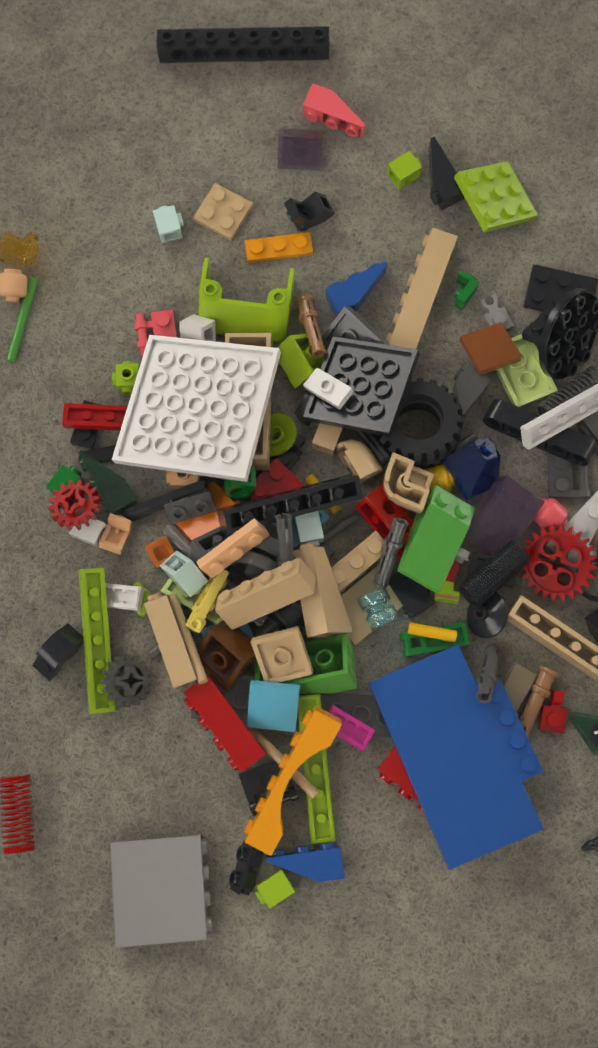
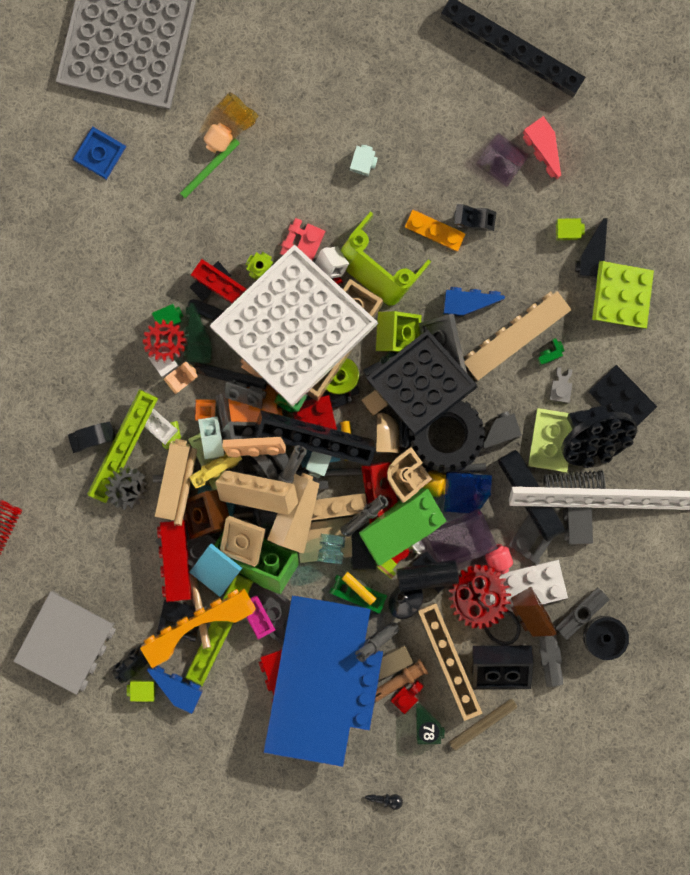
camera: 30 degrees right, 10 degrees up
(223, 211) = (411, 175): tan plate -> none
(309, 318) = (420, 302): medium nougat pin -> none
(328, 388) = (396, 370): white plate -> none
(490, 348) = (537, 411): dark orange tile -> none

